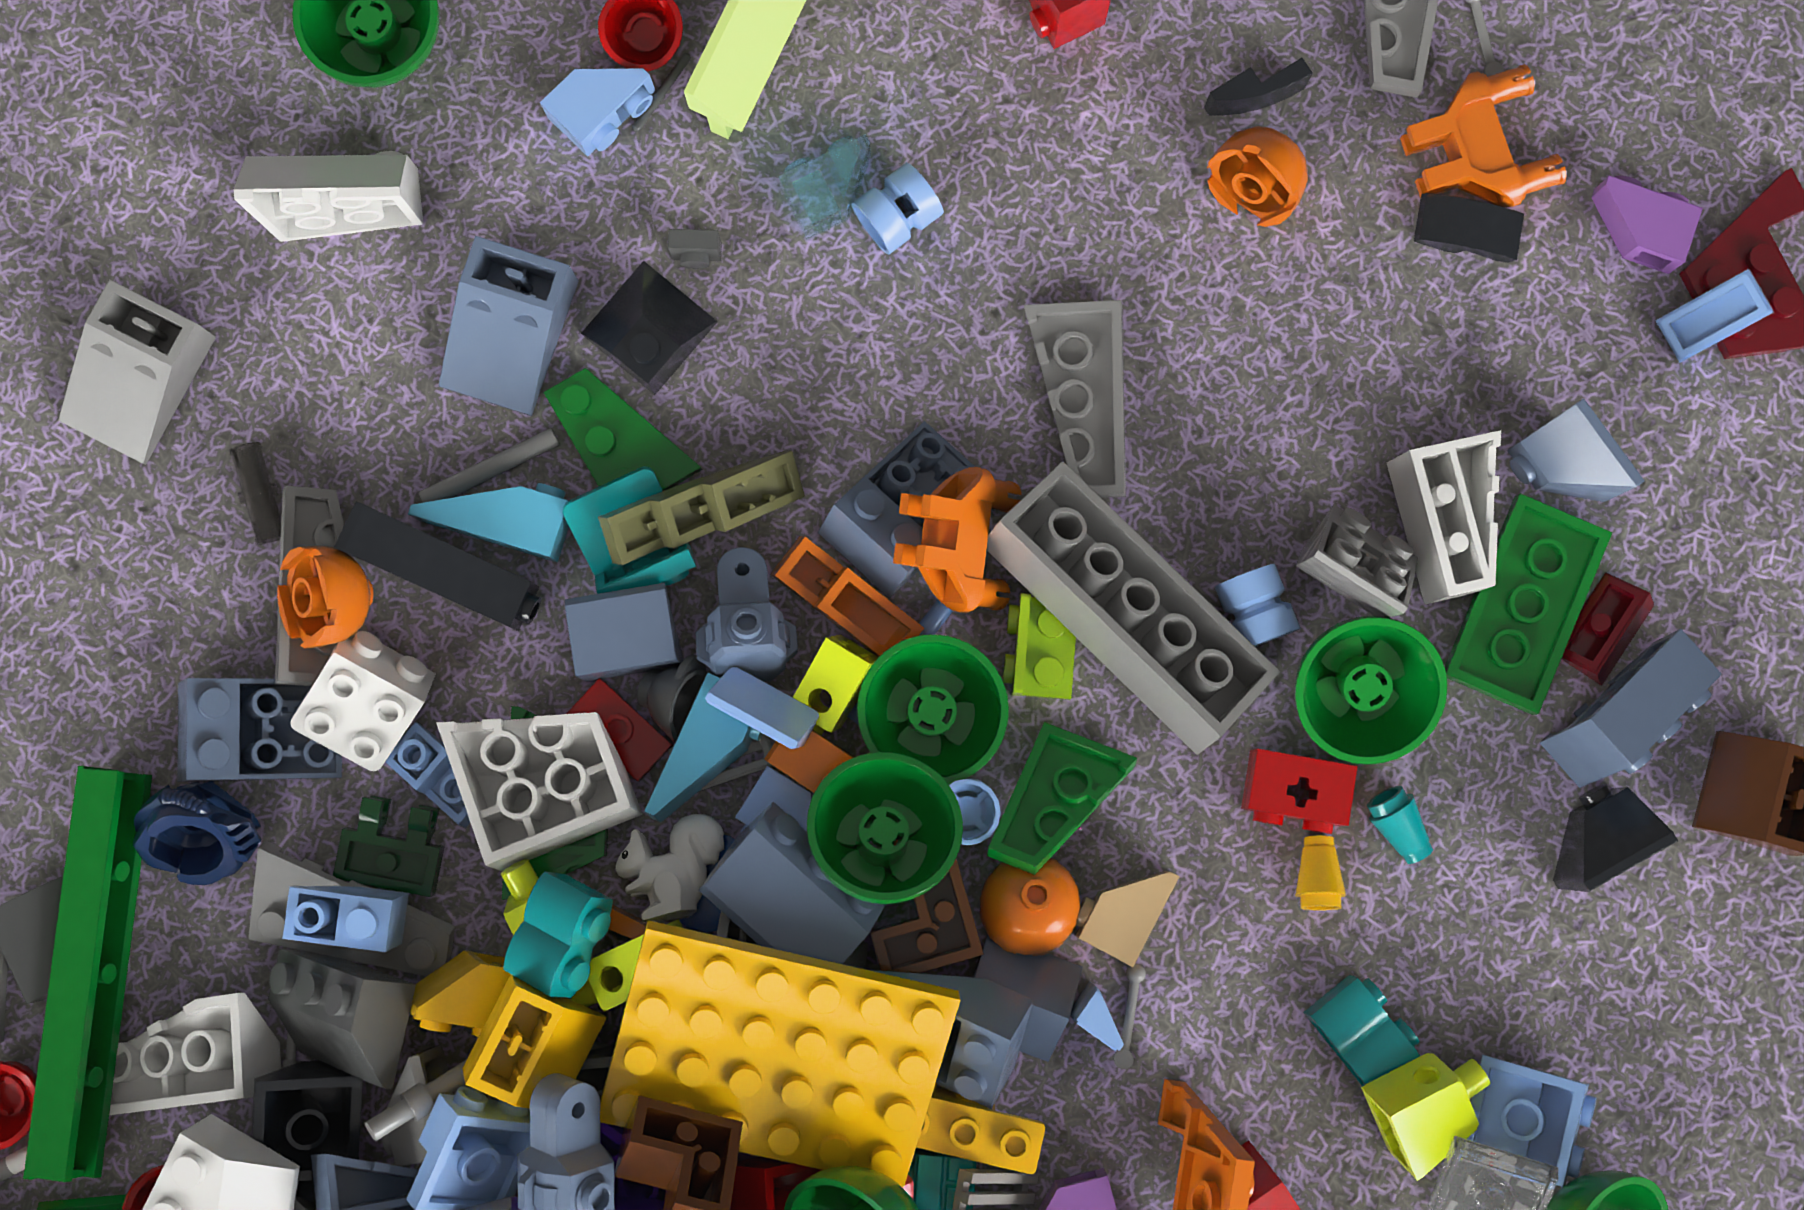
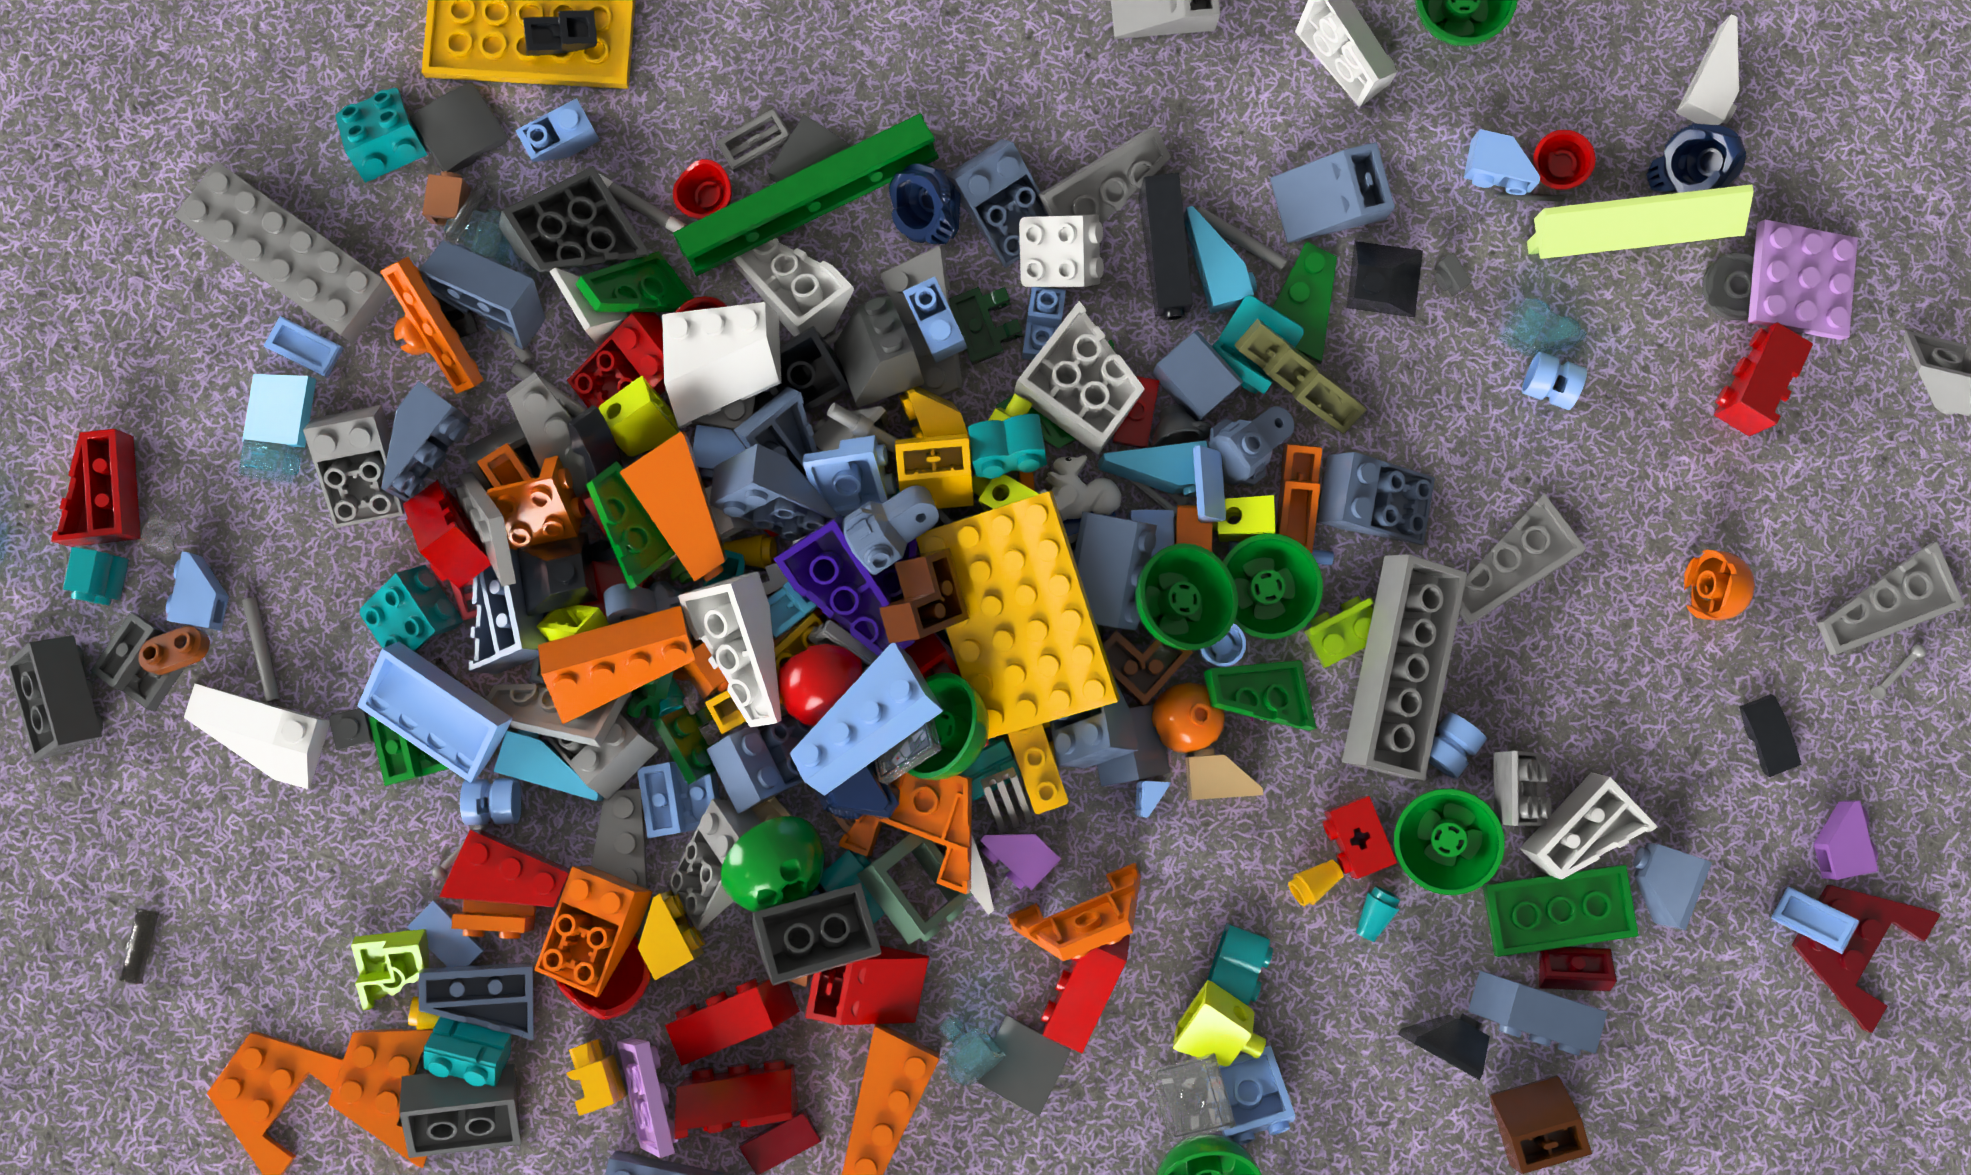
camera: 50 degrees right, 0 degrees up
(257, 492) = (1140, 113): clear smoke pin -> none
(323, 595) = (1109, 189): orange cylinder -> none
(957, 538) = (1379, 537): orange connector -> none
(1124, 1059) = (1132, 830): light grey hinge -> none
(1248, 94) = (1764, 549): black slope -> none
(1477, 146) = (1825, 708): orange connector -> none

